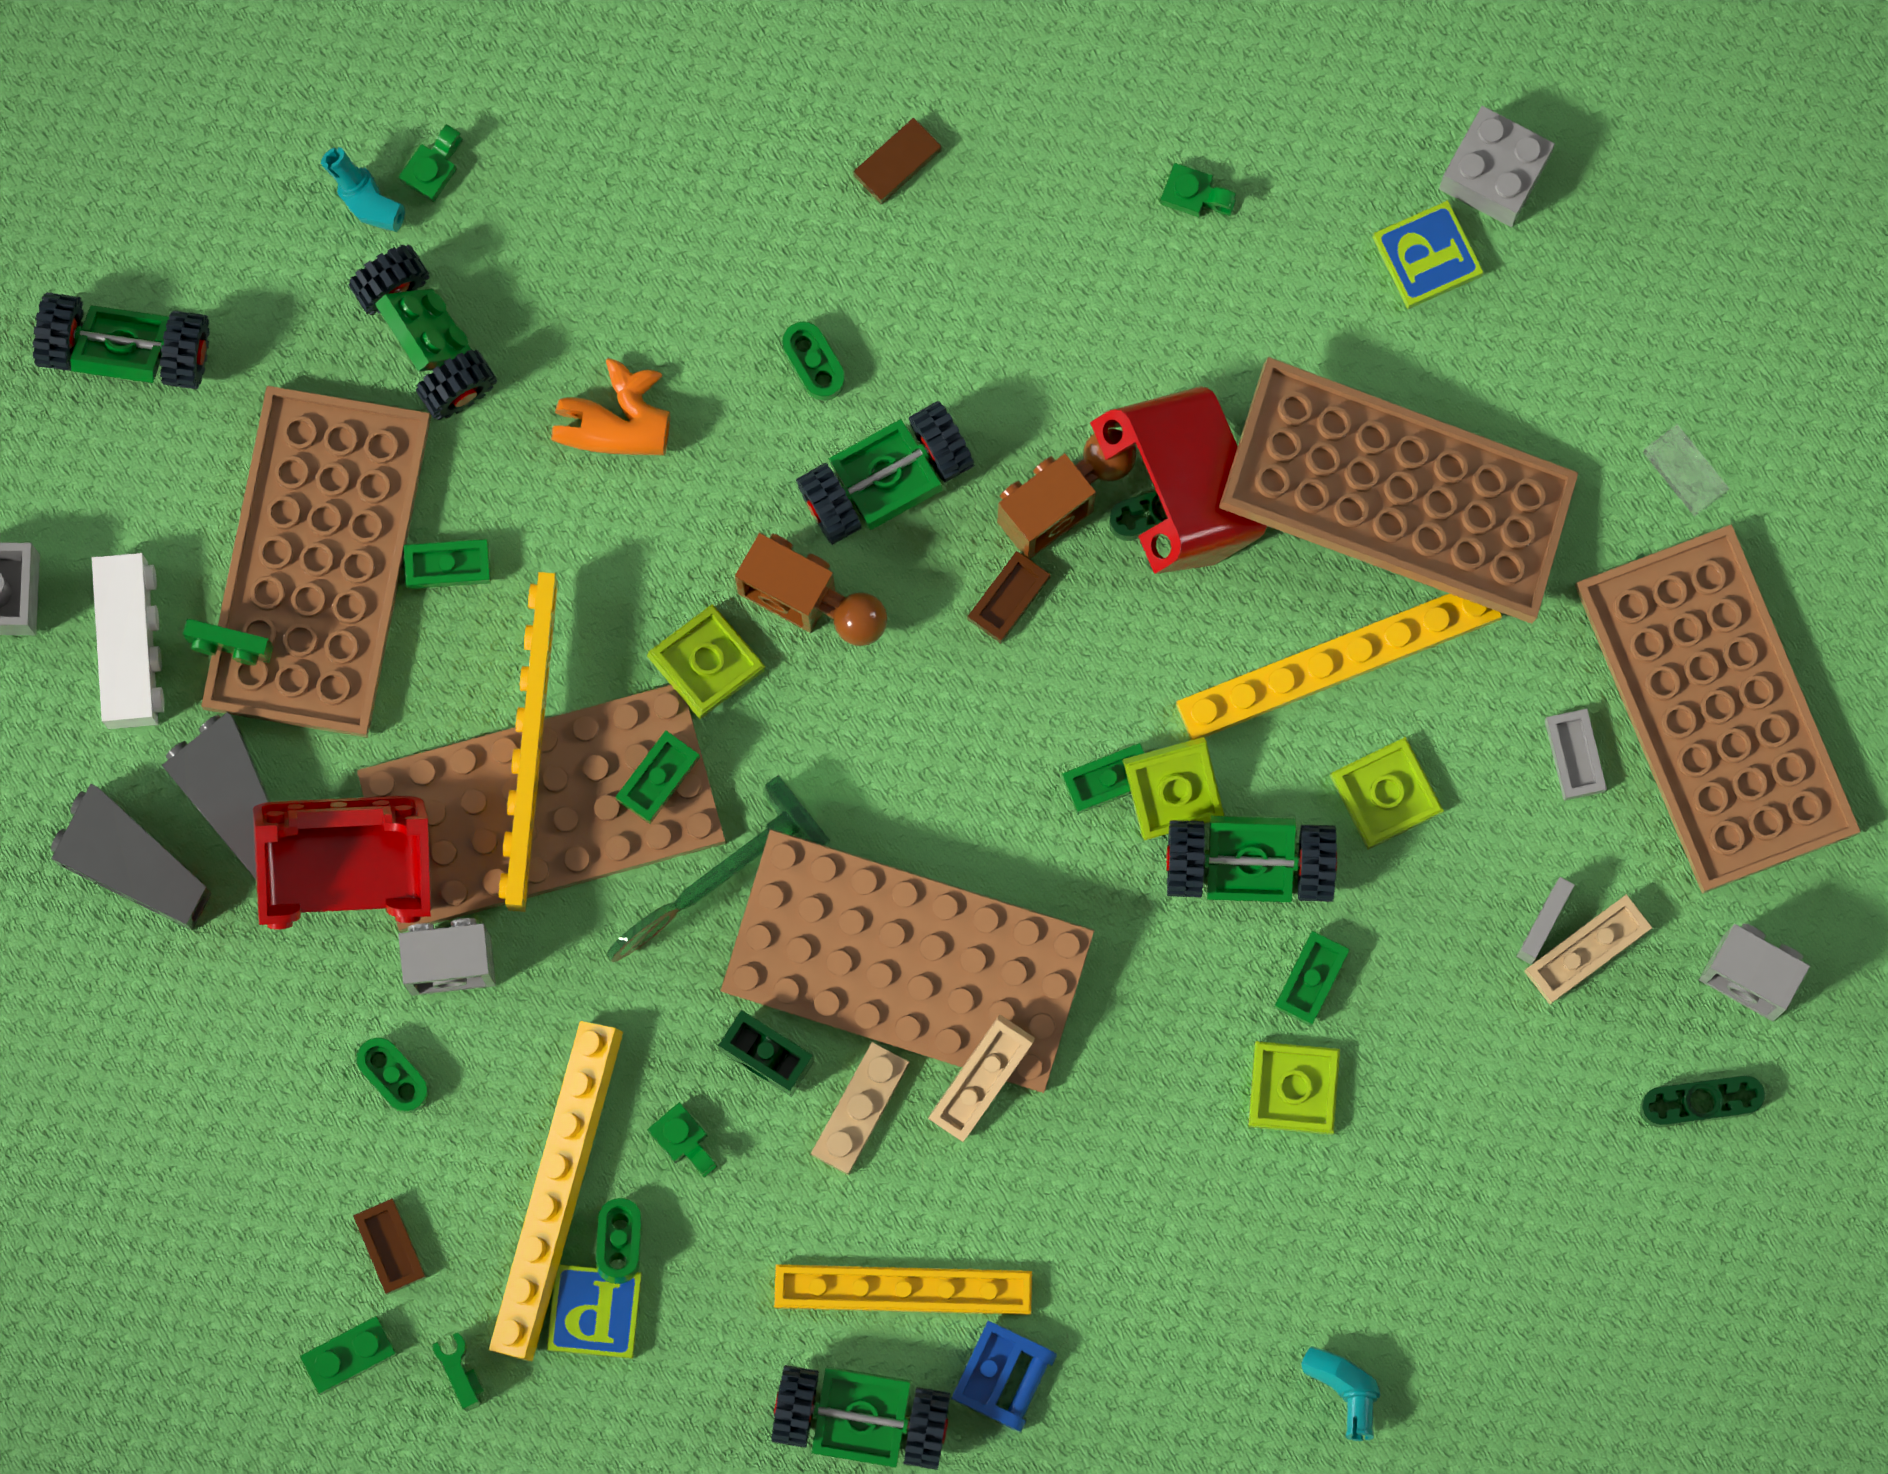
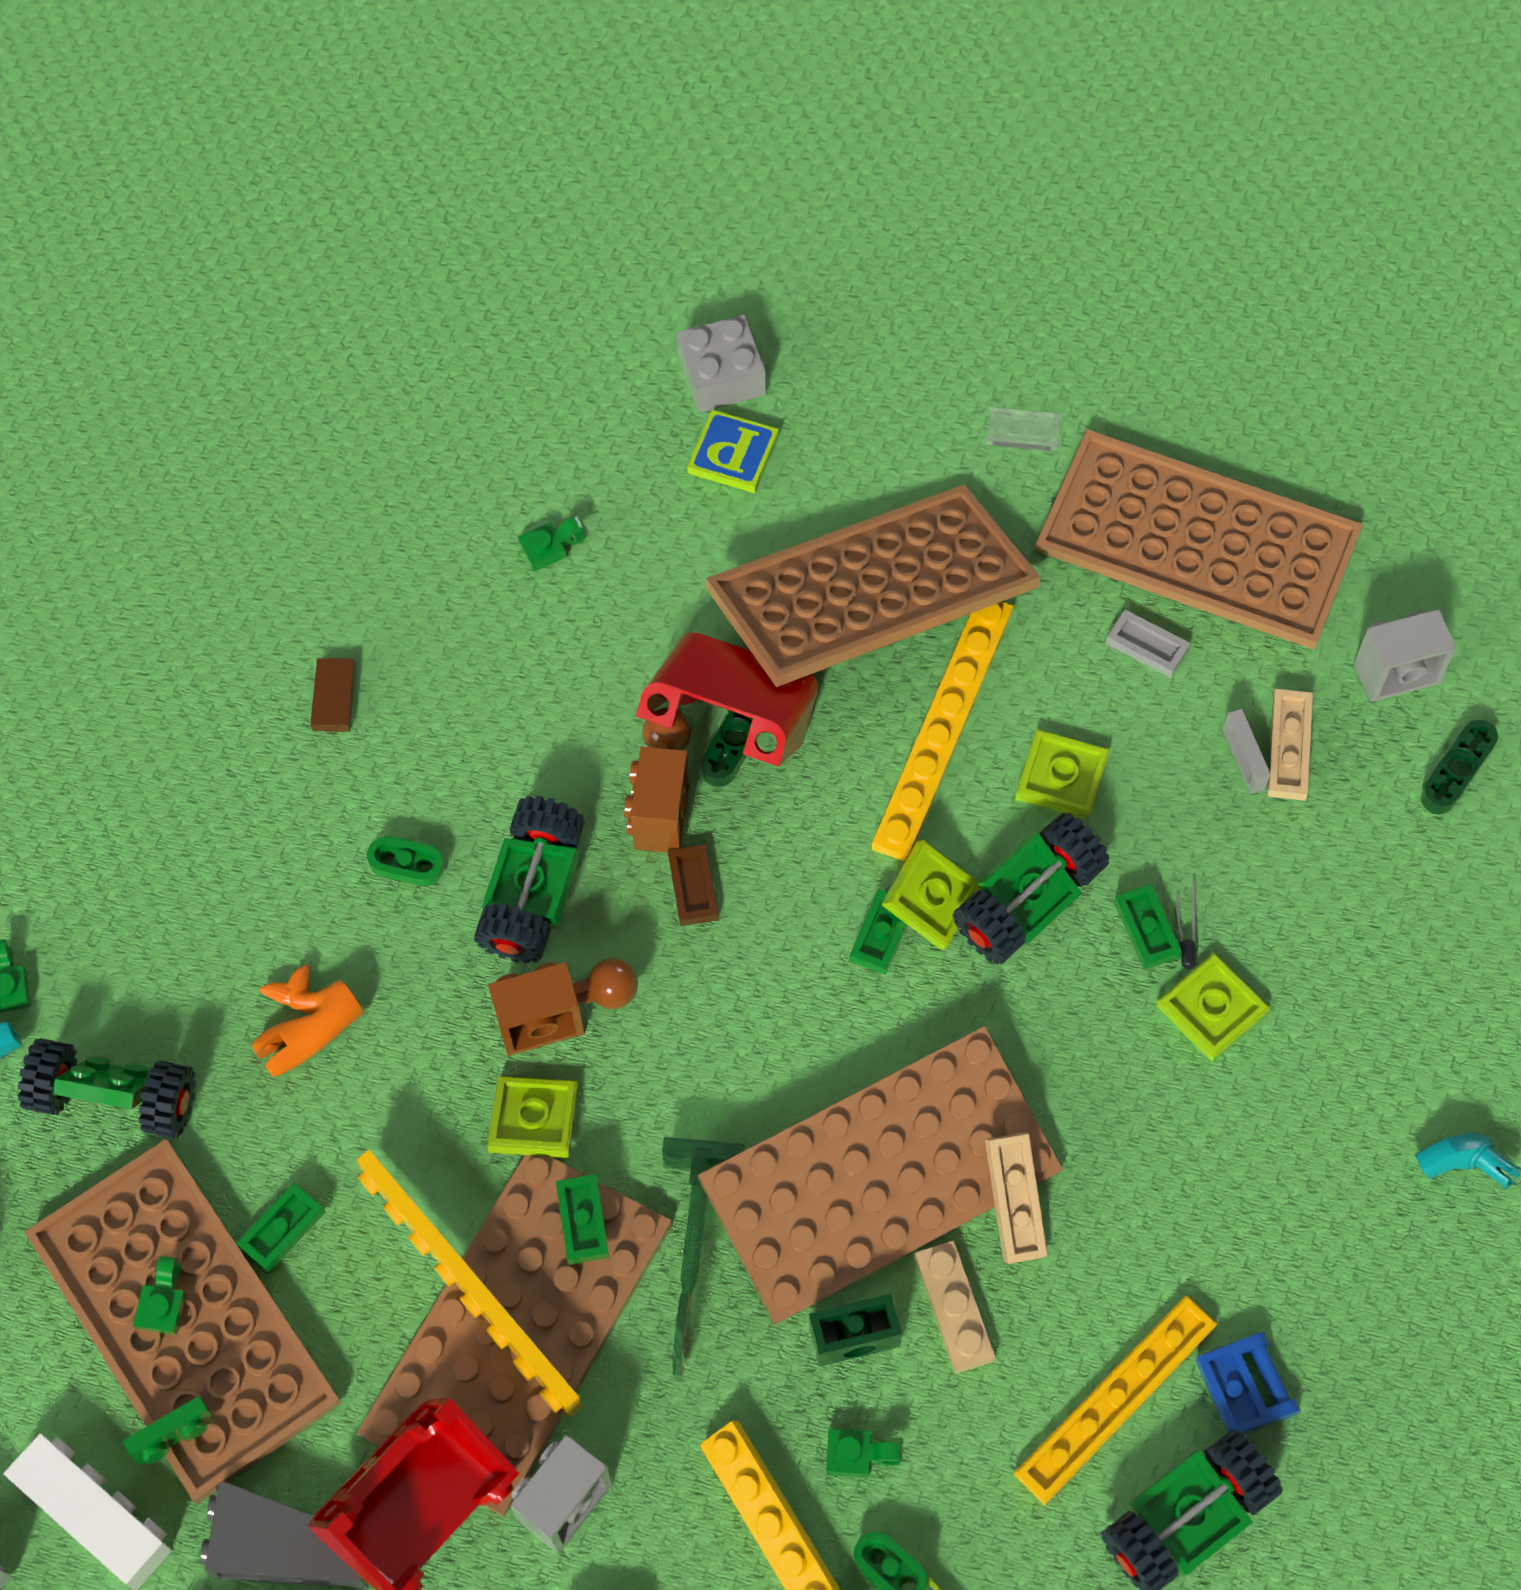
camera: 45 degrees left, 15 degrees down
(308, 541) = (161, 1305): none -> green plate
(1325, 1027) = (1188, 947): none -> piece

